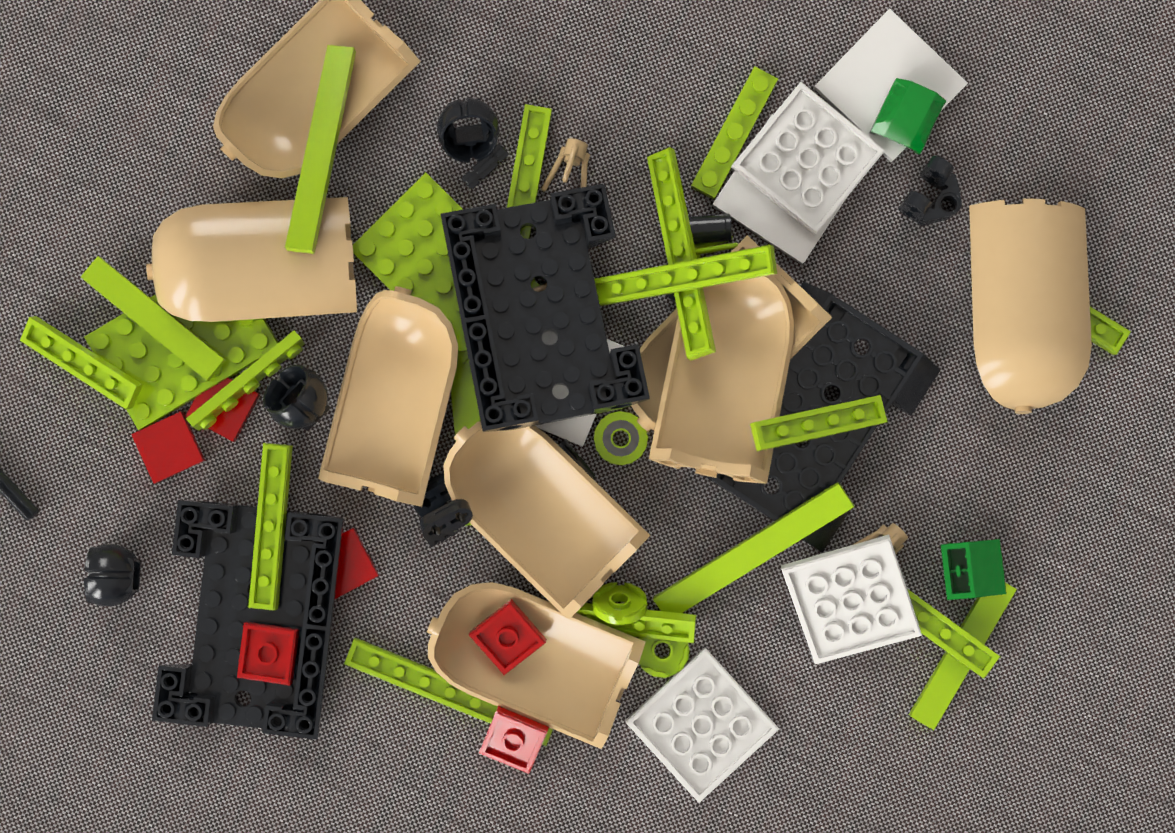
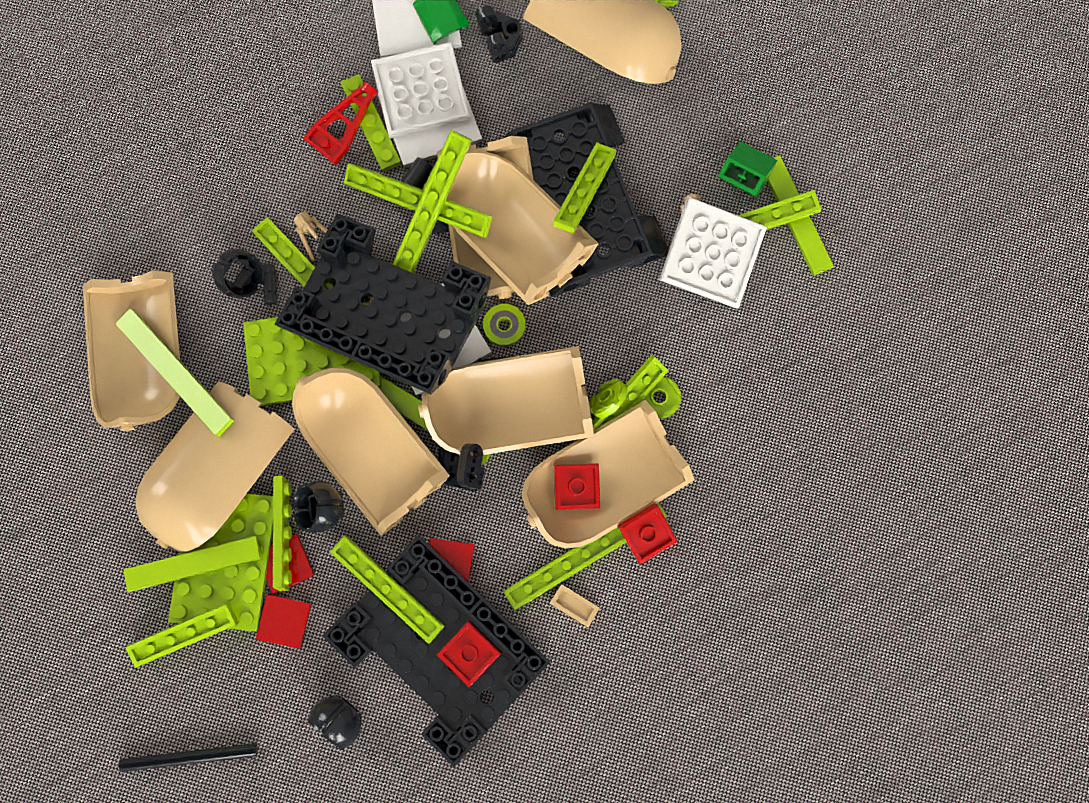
camera: 50 degrees left, 10 degrees down
(392, 718) = (574, 605): none -> tan tile
(676, 100) = (324, 142): none -> red plate
(701, 725) = (726, 407): white tile -> none
(755, 550) = (637, 288): lime tile -> none

